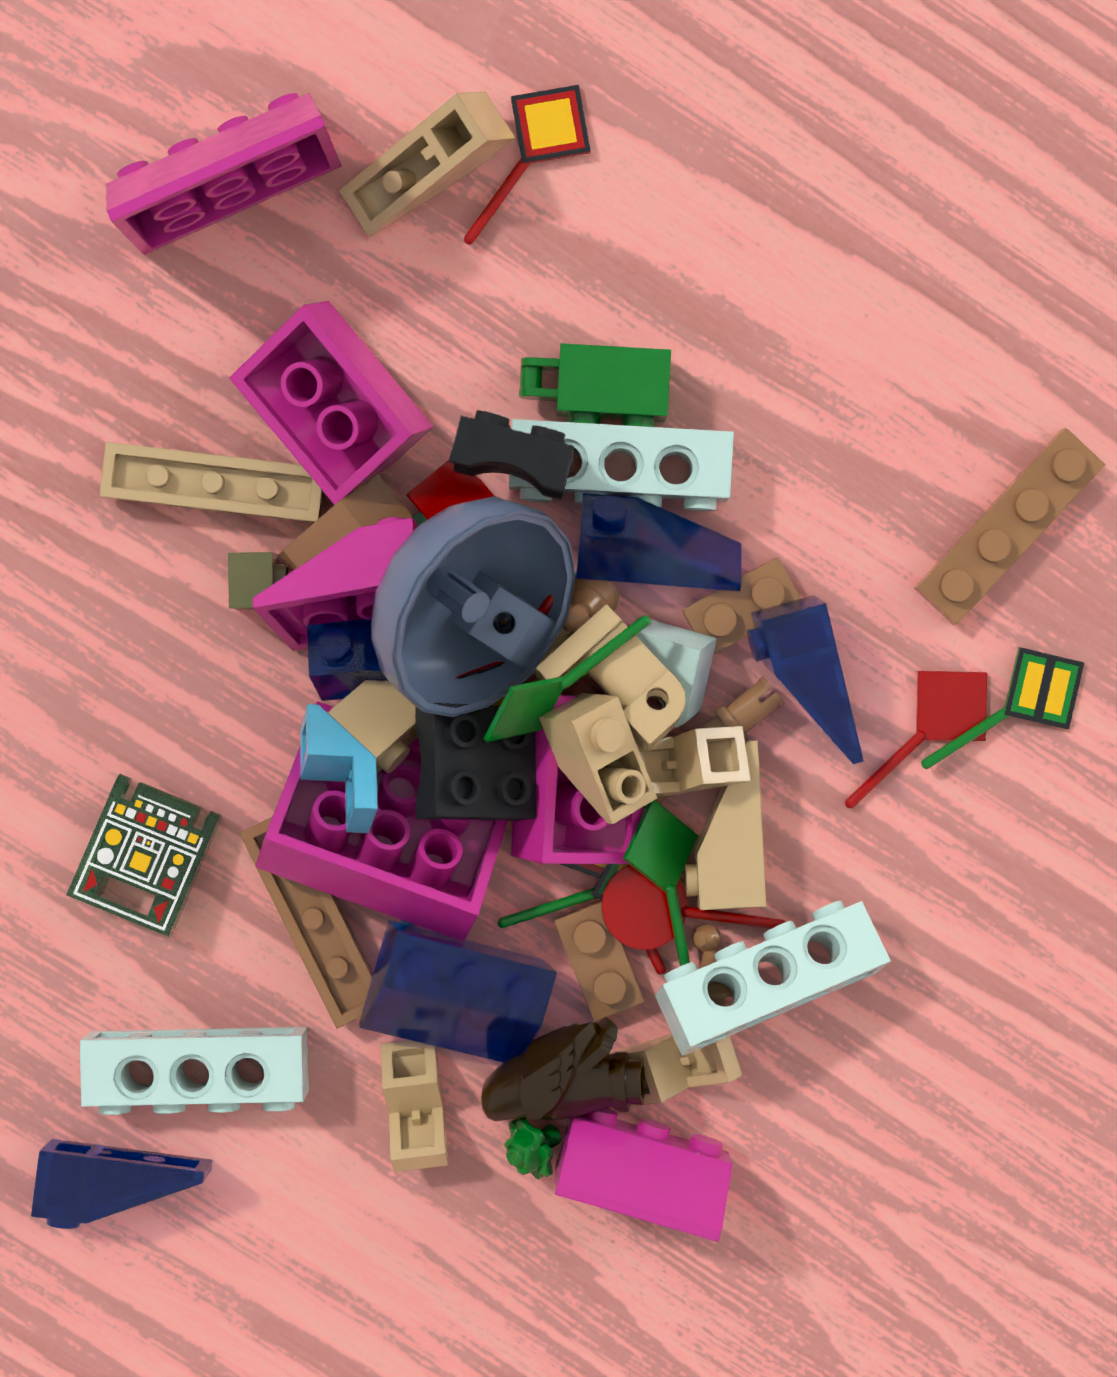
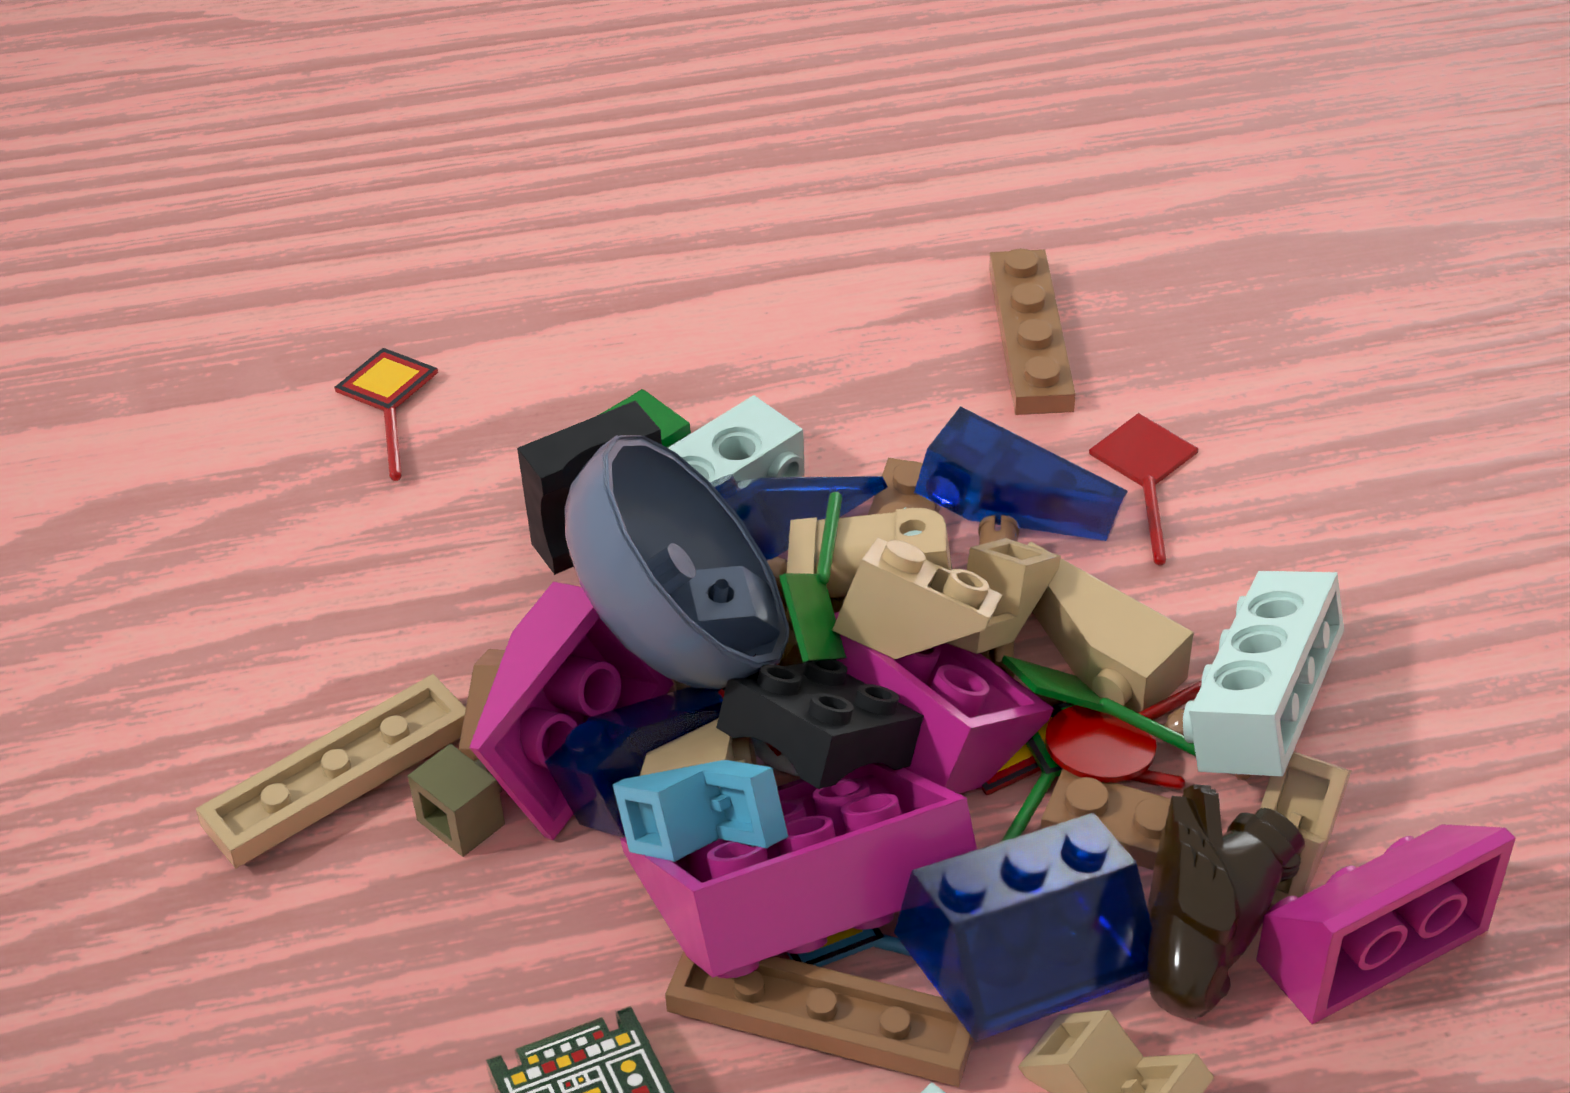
camera: 45 degrees left, 45 degrees down
(221, 174) = (126, 545): dark pink slope -> none
(330, 400) = (387, 613): dark pink slope -> none
(427, 160) = (305, 443): tan slope -> none
(531, 1147) = (1266, 1003): green plant -> none
(1039, 691) = (1190, 393): piece -> none

